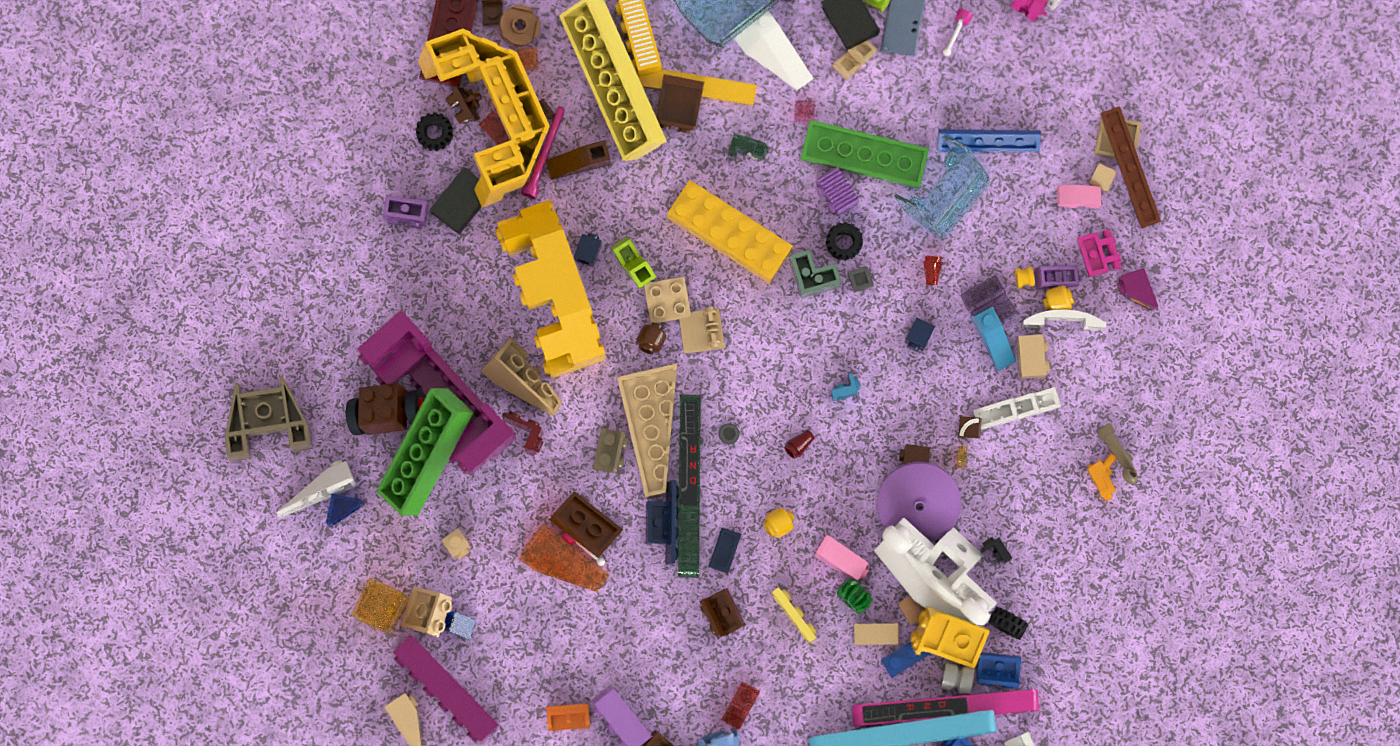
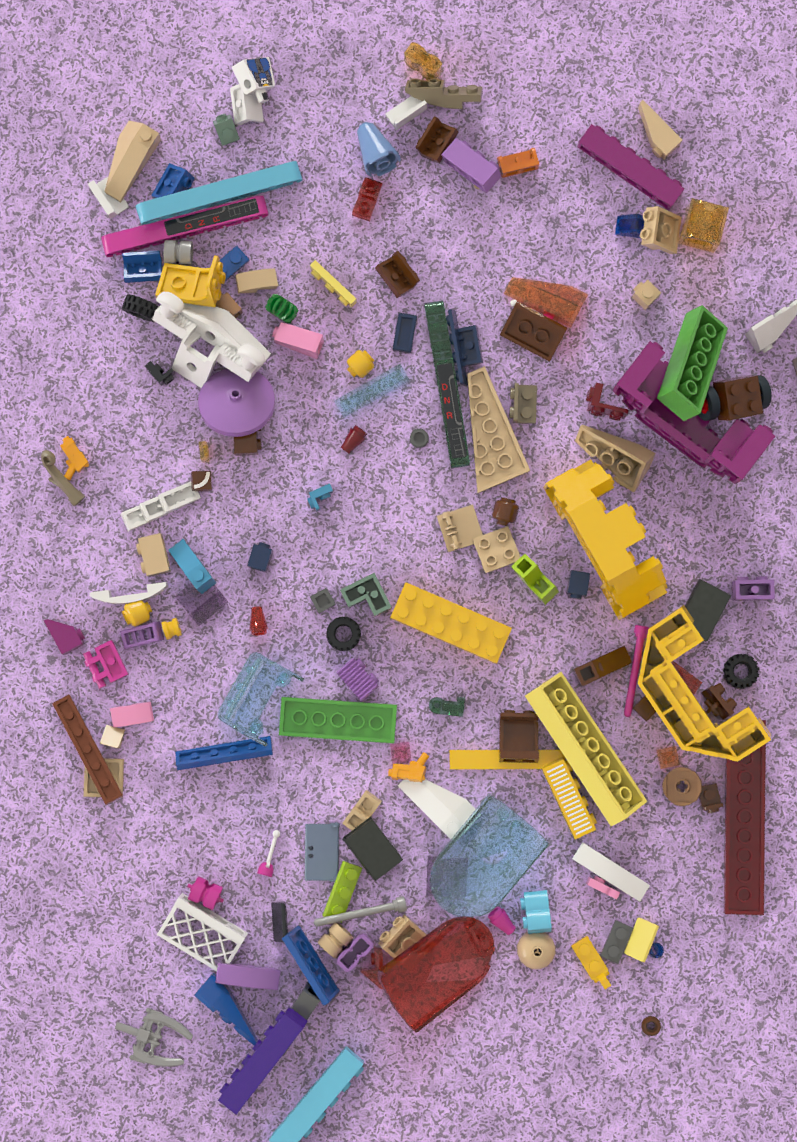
camera: 175 degrees right, 5 degrees up
(341, 507) = (755, 311): clear blue slope -> none
(771, 493) = (371, 390): none -> clear light blue tile
(794, 88) = (413, 772): none -> light orange piece

